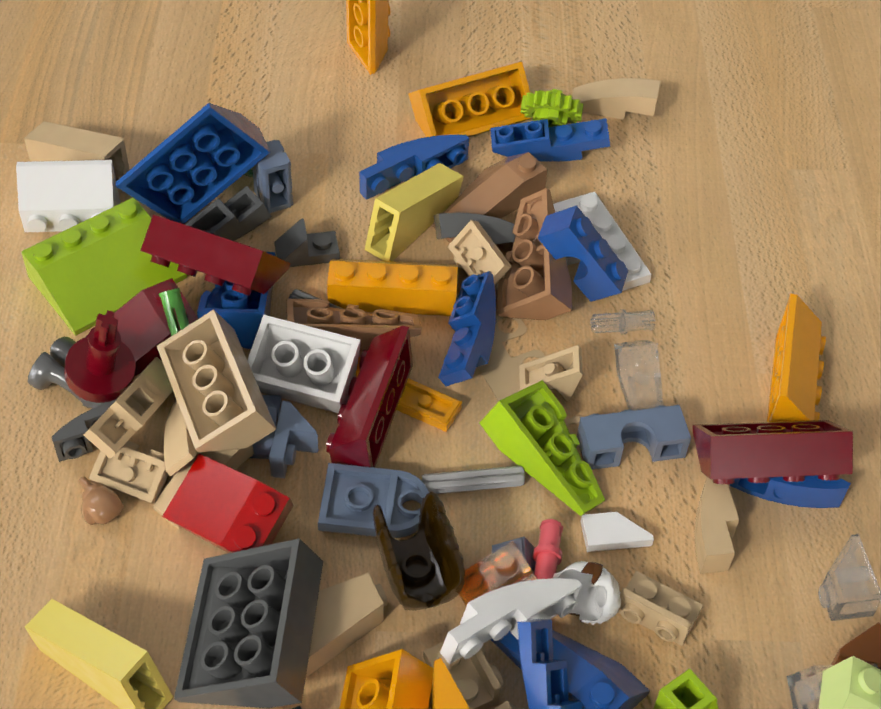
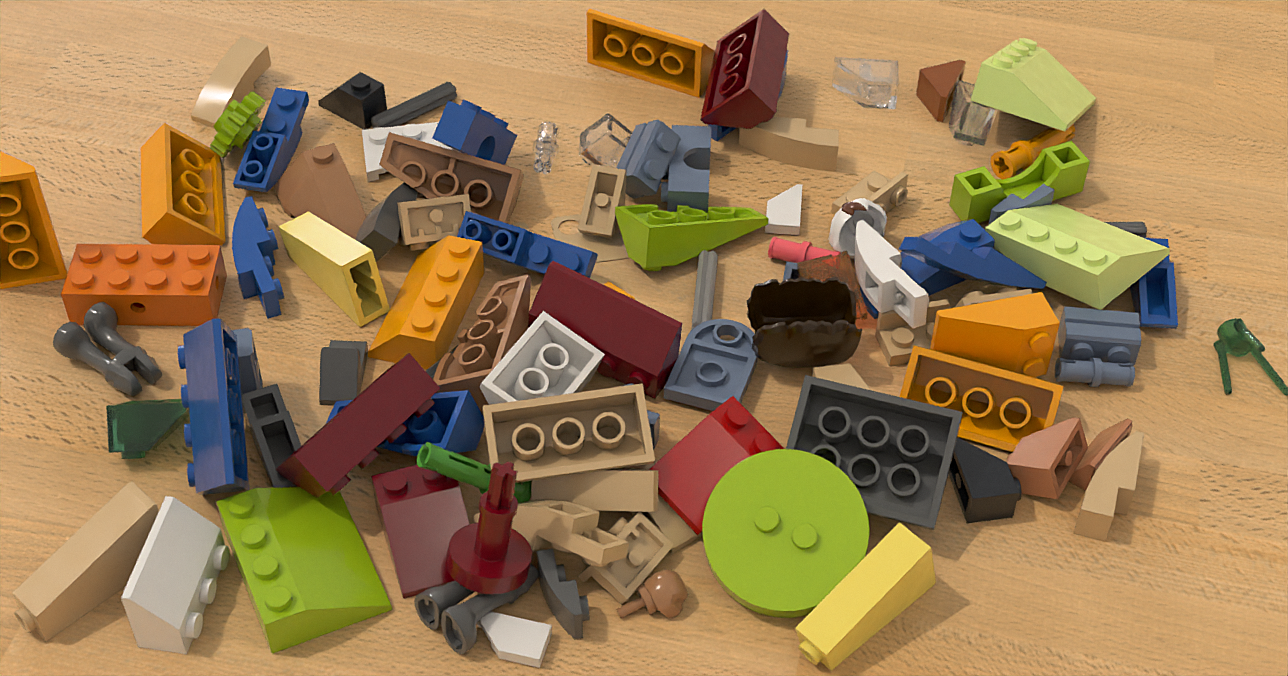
camera: 75 degrees left, 5 degrees down
(47, 414) = (516, 638): none -> white tile
(154, 573) = (784, 531): none -> lime brick
(293, 93) = (101, 328): none -> dark grey piece
(359, 109) = (146, 283): none -> orange brick
(619, 392) = (648, 157): none -> sand blue brick
(628, 180) = (356, 100): none -> black slope
(644, 221) = (415, 106): none -> dark grey axle

